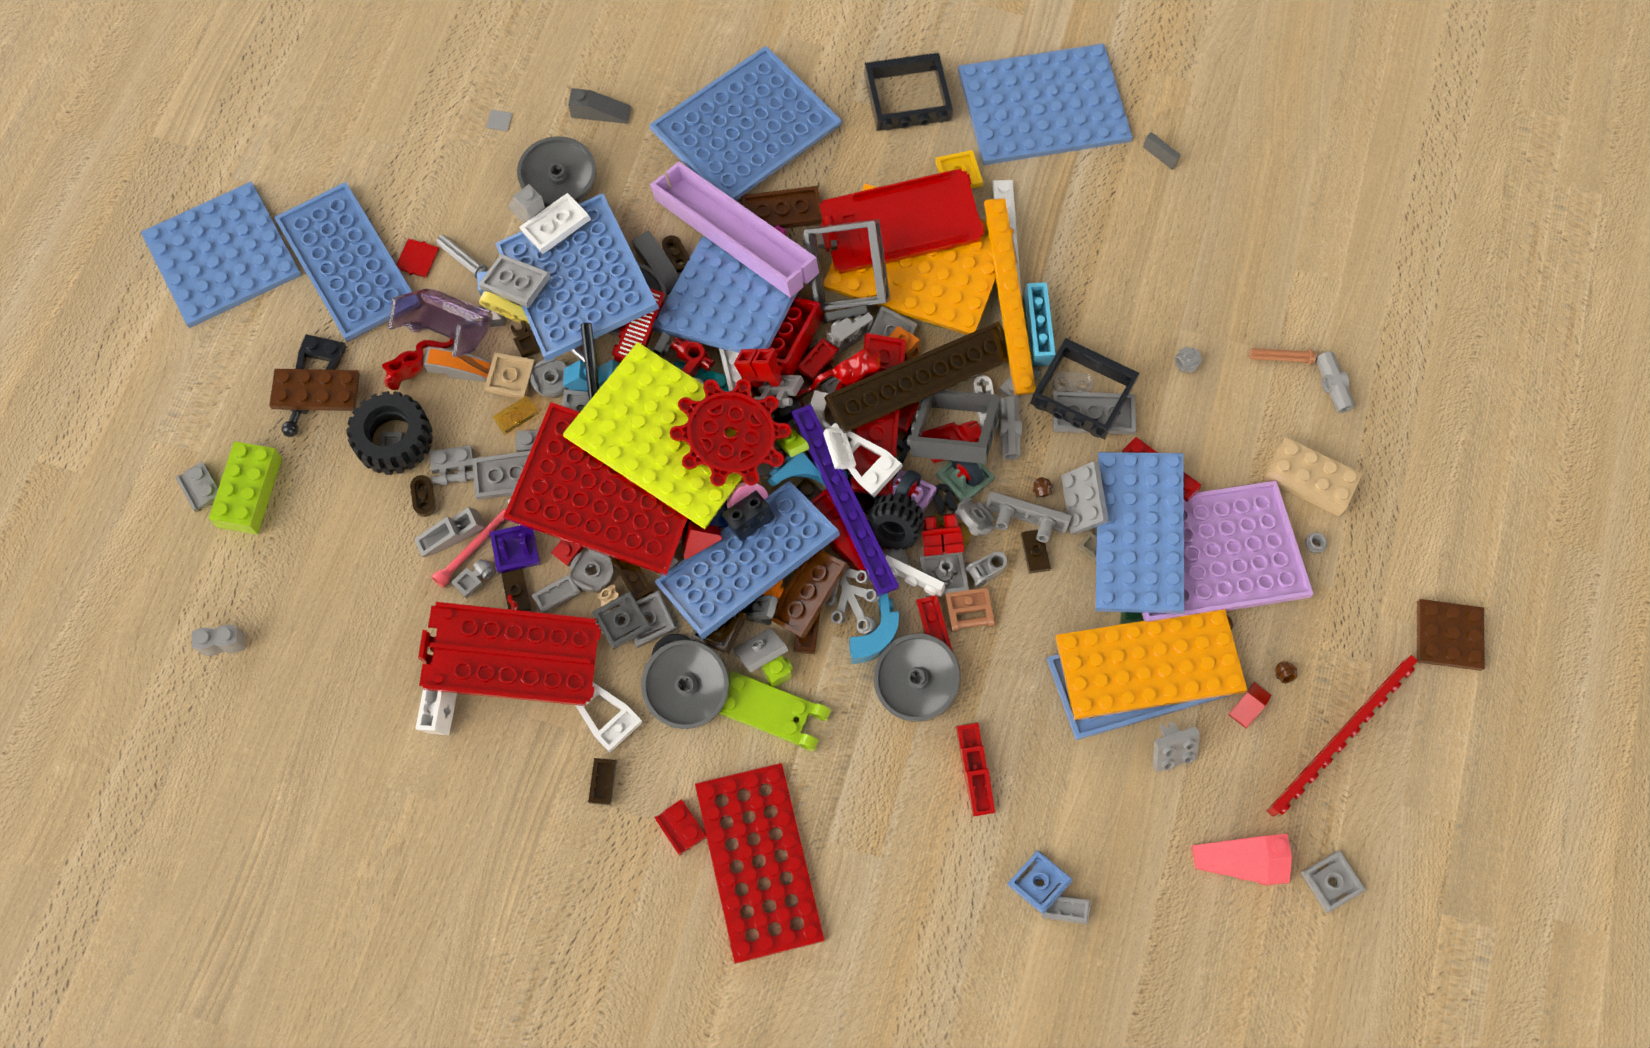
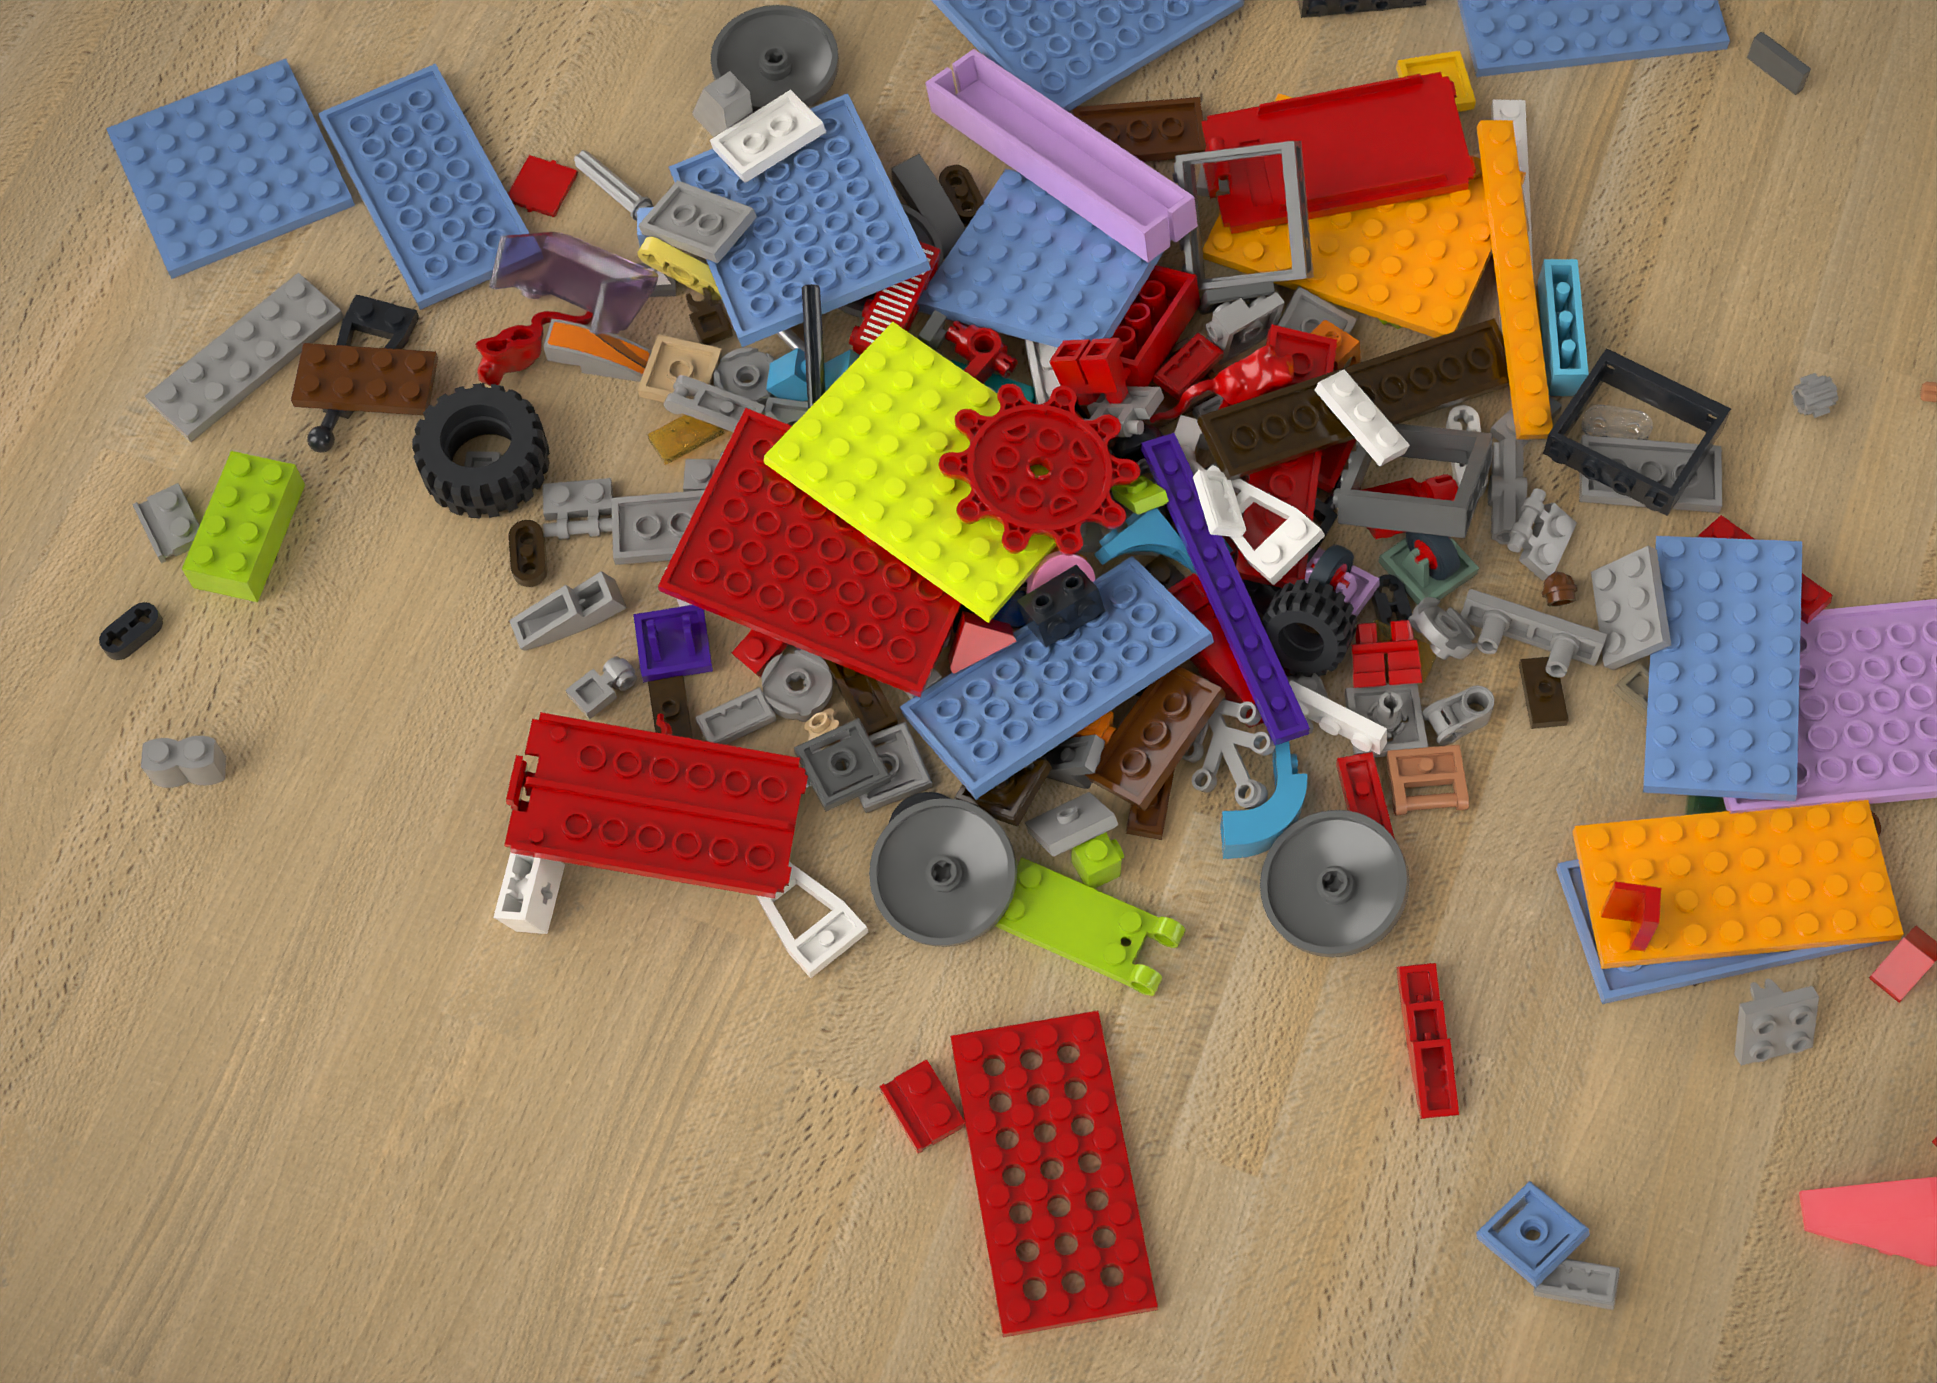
camera: 10 degrees right, 5 degrees down
(179, 557) = (131, 631): none -> black beam
(238, 377) = (244, 357): none -> light grey plate
(442, 577) = (552, 681): coral piece -> none
(529, 396) = (709, 403): none -> light grey plate
(602, 781) = (796, 1023): dark brown plate -> none
(922, 390) = (1362, 417): none -> white plate
(1035, 456) = (1547, 540): none -> light grey plate
(1096, 685) = (1635, 904): none -> red panel

